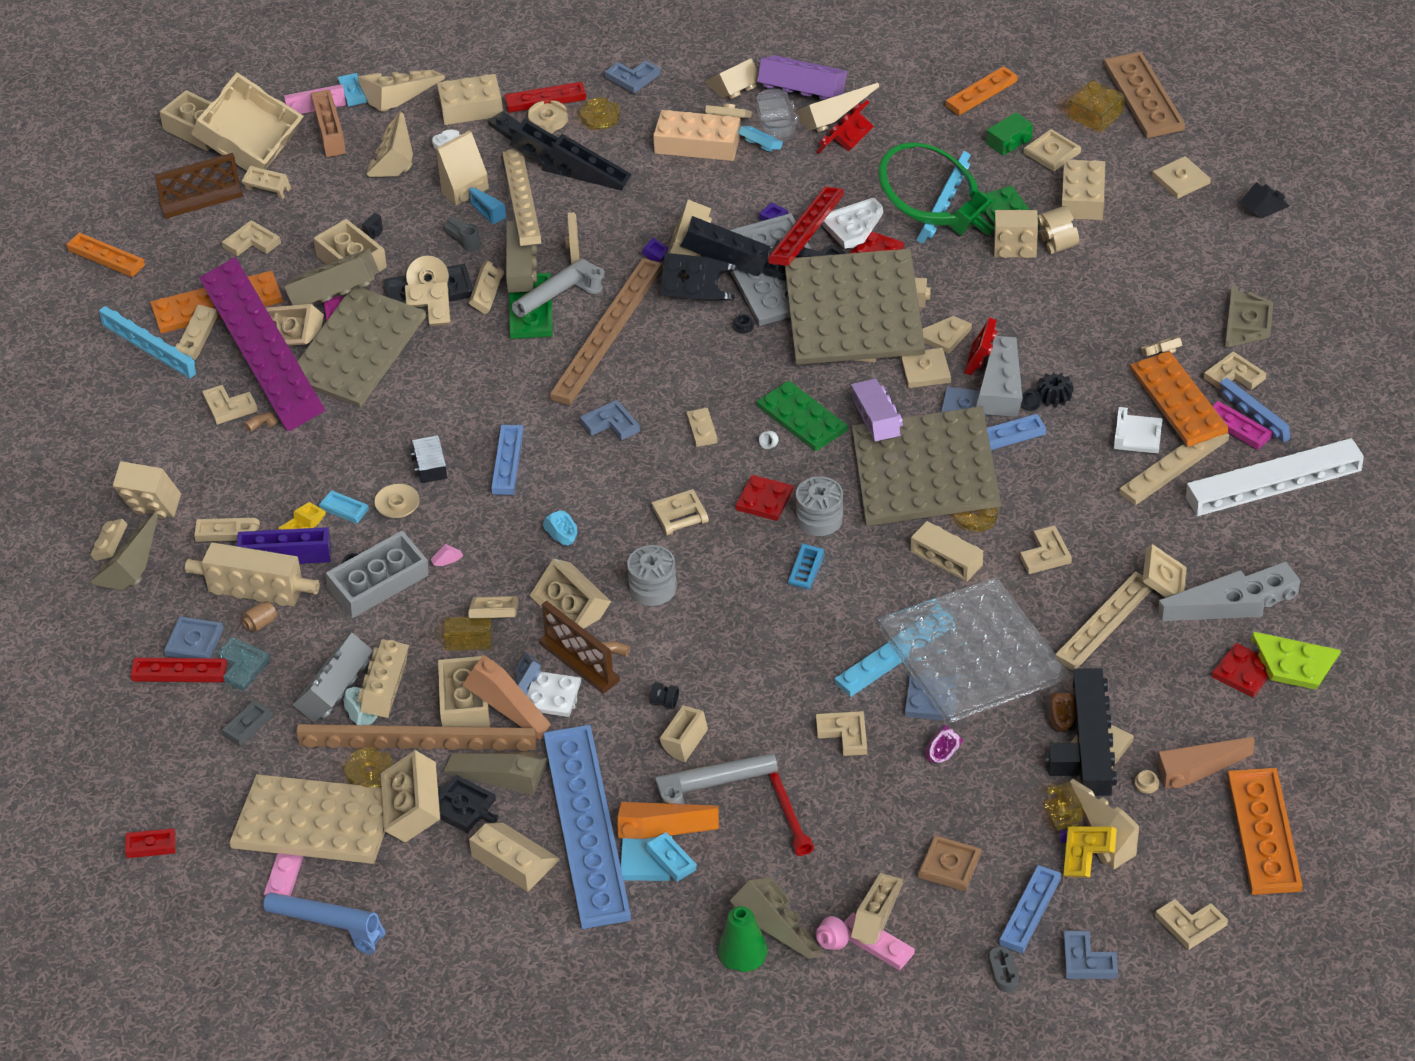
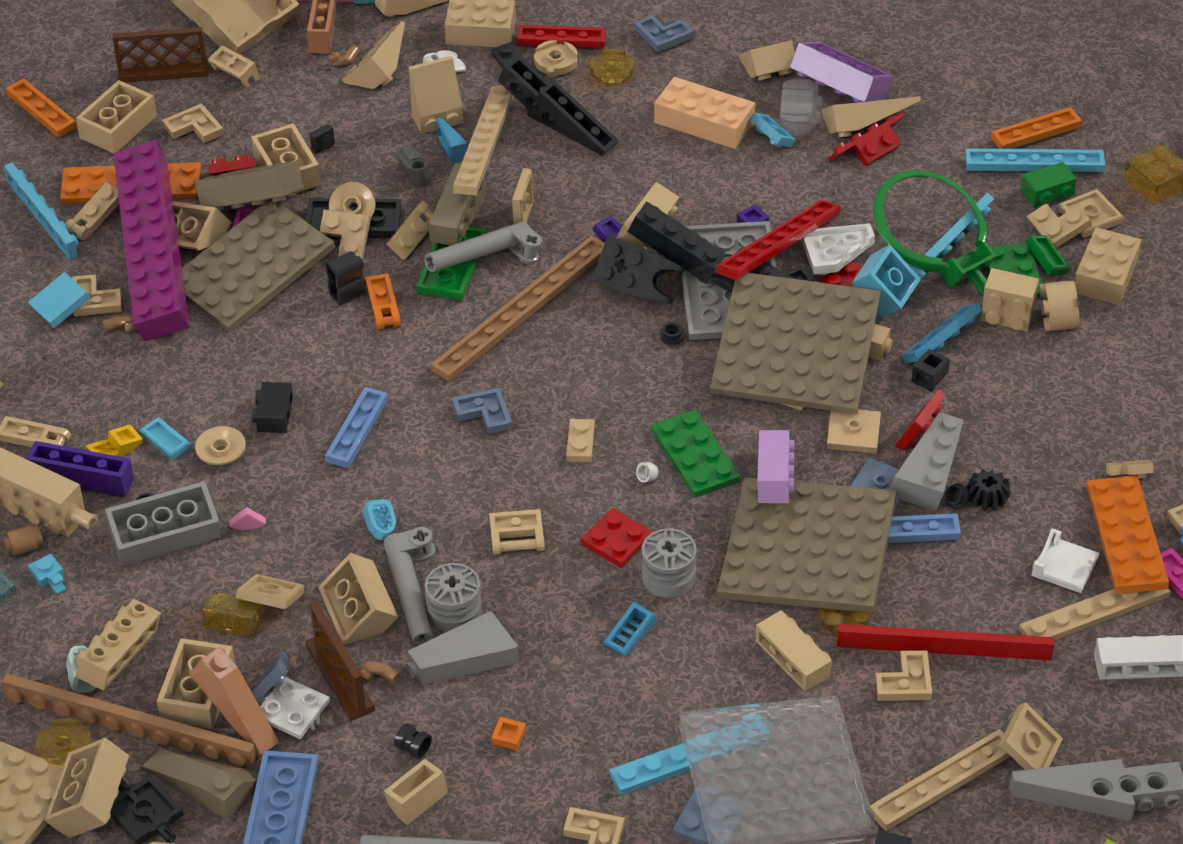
camera: 15 degrees right, 0 degrees up
(180, 247) = (116, 116): none -> tan brick
(199, 412) = (59, 299): none -> medium azure tile
(292, 637) = (49, 572): none -> medium azure plate
(308, 264) = (221, 166): none -> red plate
(333, 678) = (67, 629): light grey wedge -> none
(363, 155) = (341, 60): none -> medium nougat arm
(447, 338) = (345, 277): none -> black brick
(485, 351) = (382, 301): none -> orange plate
(591, 551) = (403, 551): none -> light grey axle
(677, 615) = (463, 651): none -> light grey slope
(728, 110) = (747, 92): tan plate -> none
(740, 671) = (508, 733): none -> orange plate
(908, 232) = (890, 275): none -> medium azure brick
(946, 333) = (891, 396): tan wing -> none
(966, 276) = (946, 330): none -> dark azure plate
(970, 305) = (930, 370): none -> black brick
(988, 116) = (1033, 159): none -> medium azure plate
(1030, 169) = (1059, 229): none -> tan plate
(1030, 191) = (1047, 255): none -> green tile
(1066, 515) = (945, 642): none -> red tile

